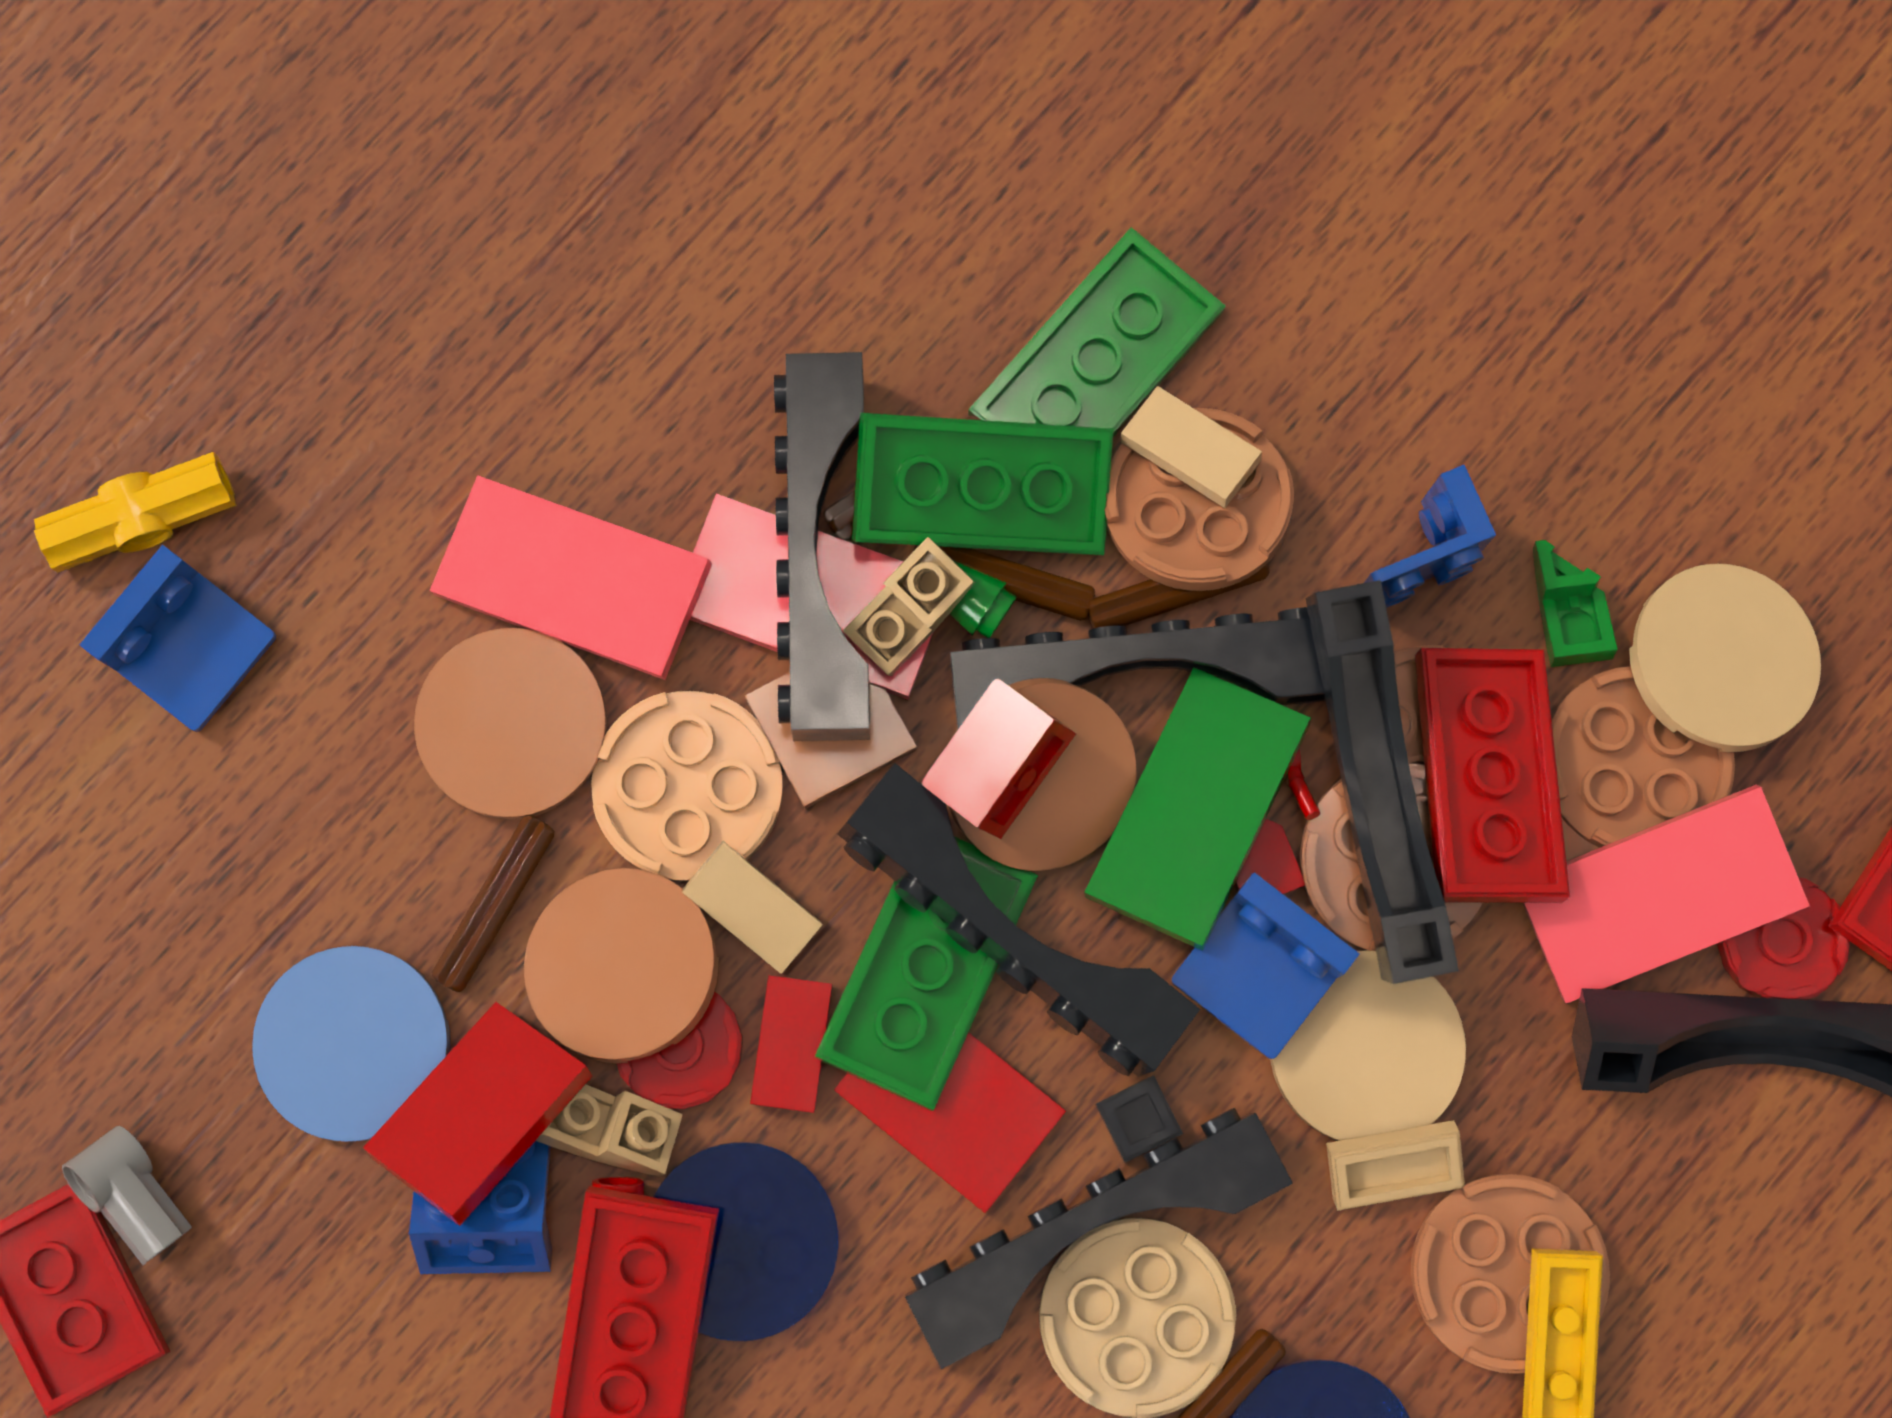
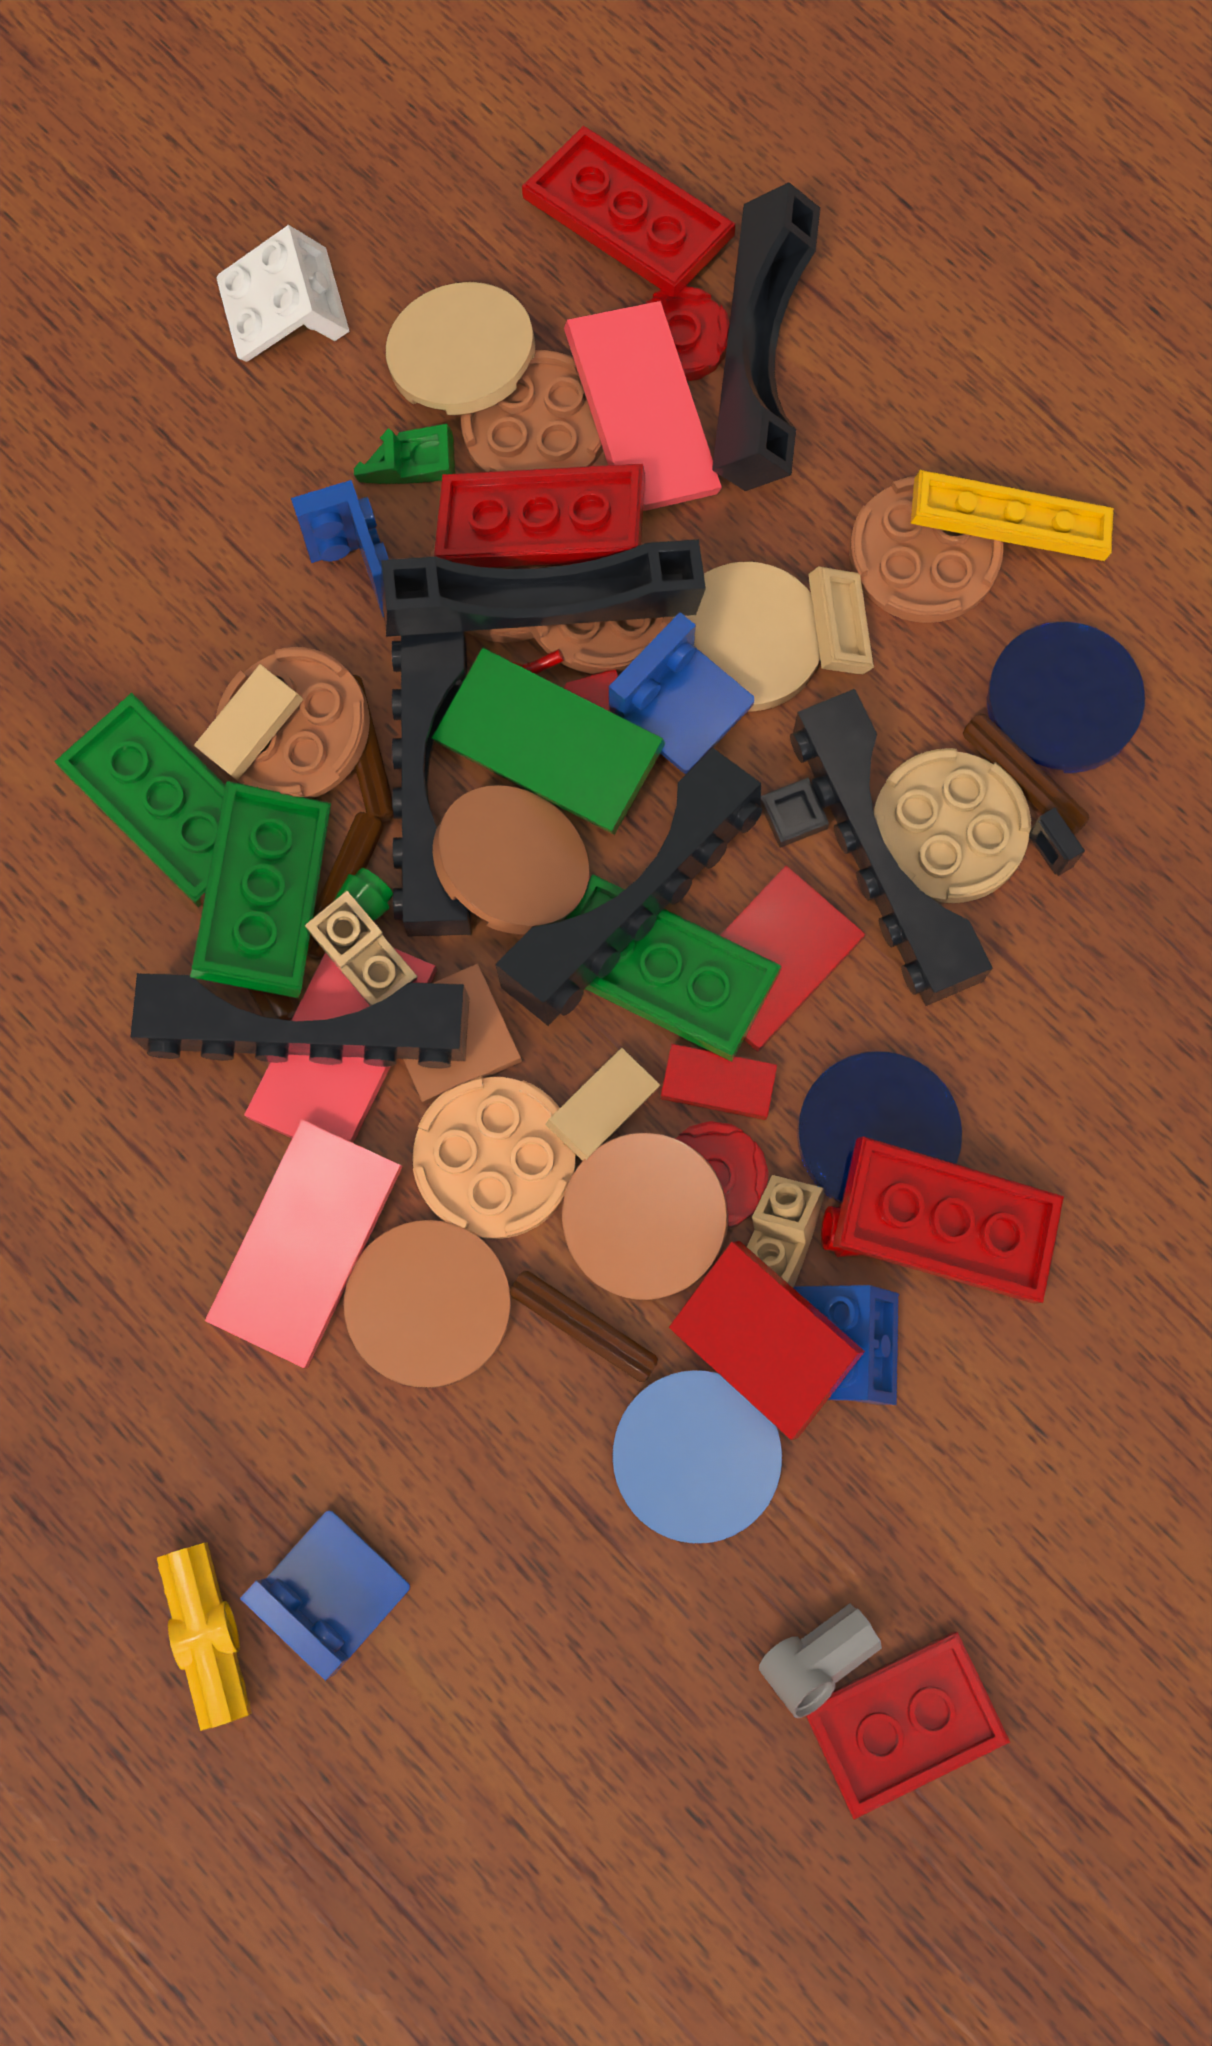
camera: 85 degrees left, 5 degrees down
(997, 759) = (497, 881): panel -> none
(1778, 427) = (279, 290): none -> white bracket

